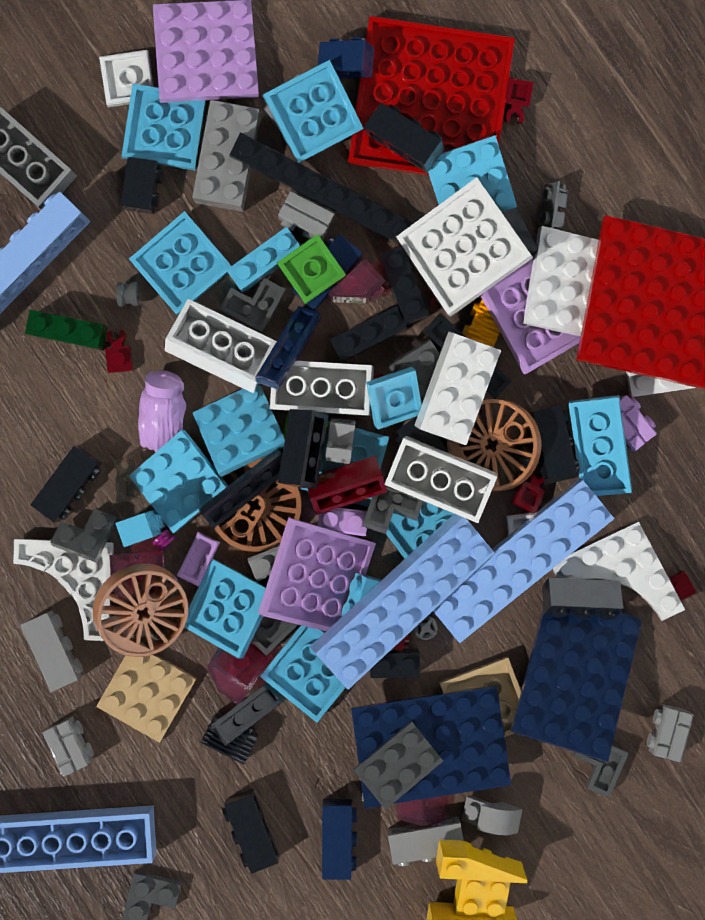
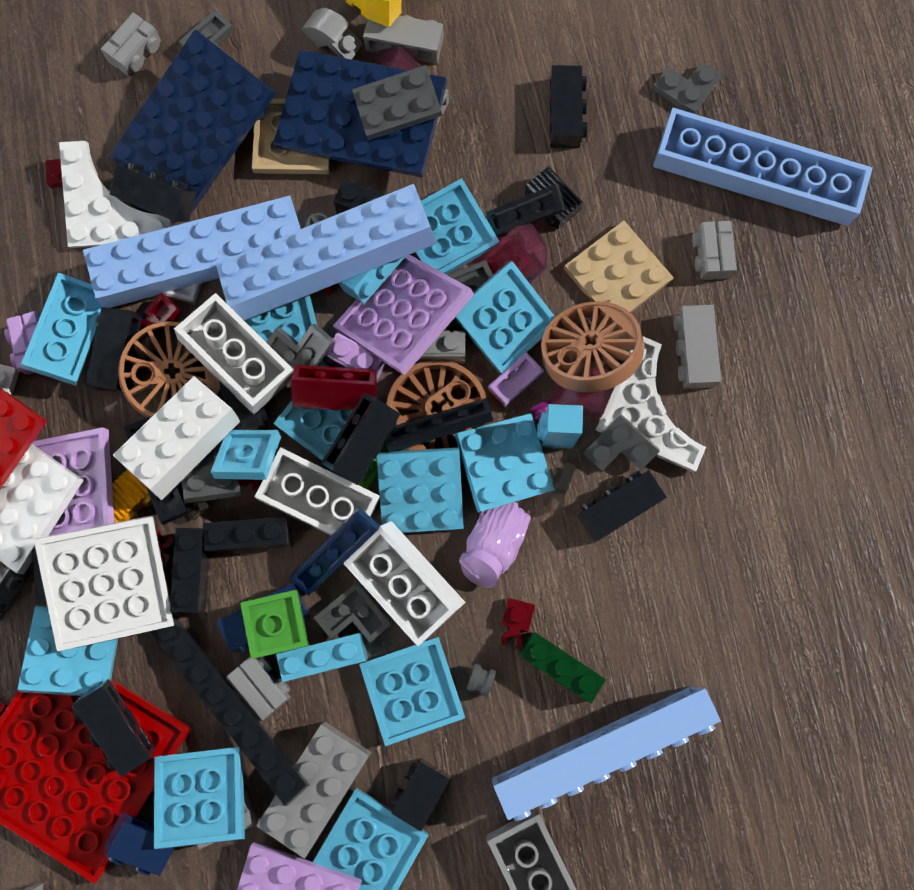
camera: 160 degrees left, 10 degrees down
(338, 839) = (486, 68): dark blue brick -> none
(340, 440) = (320, 434): light grey brick -> none
(359, 286) = (229, 587): clear pink slope -> none

